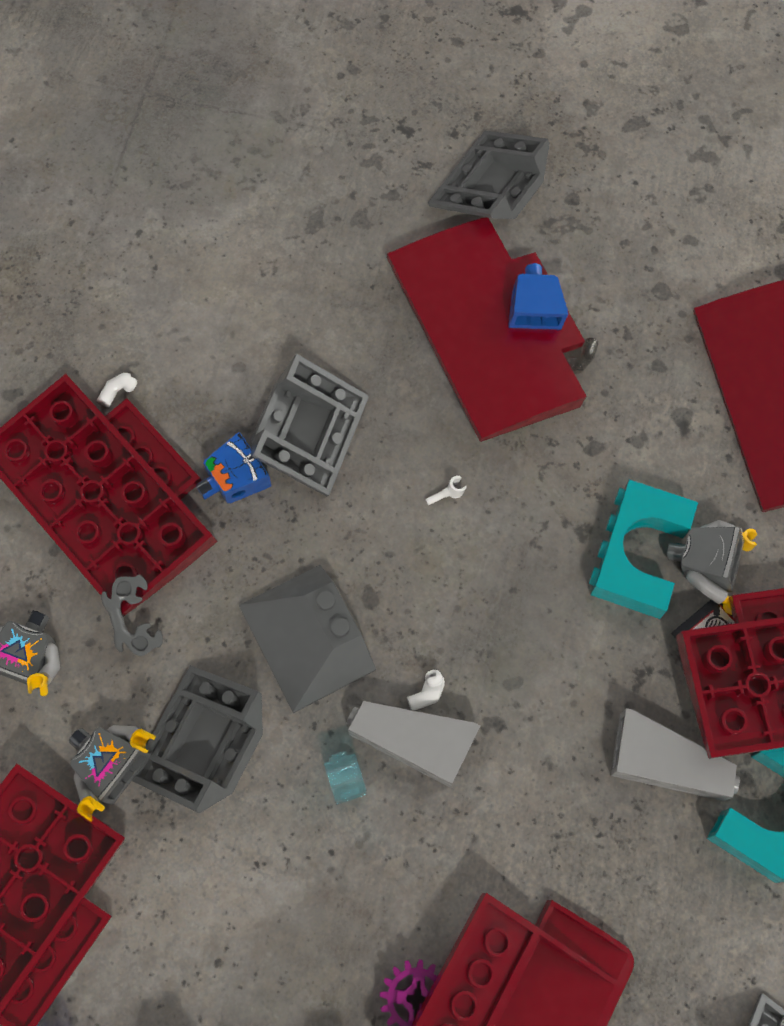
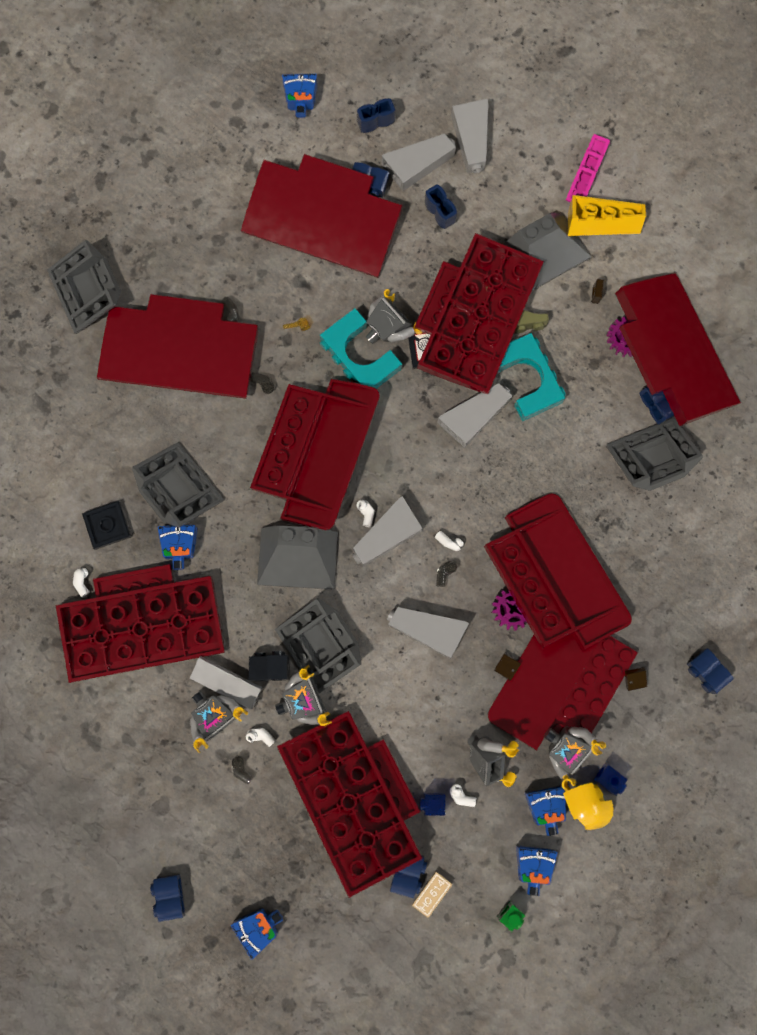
camera: 60 degrees left, 10 degrees up
(29, 732) = (258, 734): none -> white arm
(78, 644) = (225, 682): none -> light grey piece
(128, 690) = (269, 667): none -> black brick
(140, 642) = (212, 640): dark grey helmet -> none
(208, 376) = (106, 525): none -> black tile
(311, 891) = (430, 630): none -> light grey slope
(345, 777) = (385, 581): clear light blue brick -> none
(411, 856) = (444, 571): none -> clear smoke arm
(449, 491) = (263, 432): white hand -> none
(456, 837) = (447, 542): none -> white arm
(469, 569) = (315, 450): none -> dark red slope
(519, 452) = (265, 382): none -> clear smoke arm
(537, 301) = (184, 314): blue torso -> none
(629, 451) = (302, 323): none -> clear yellow hand

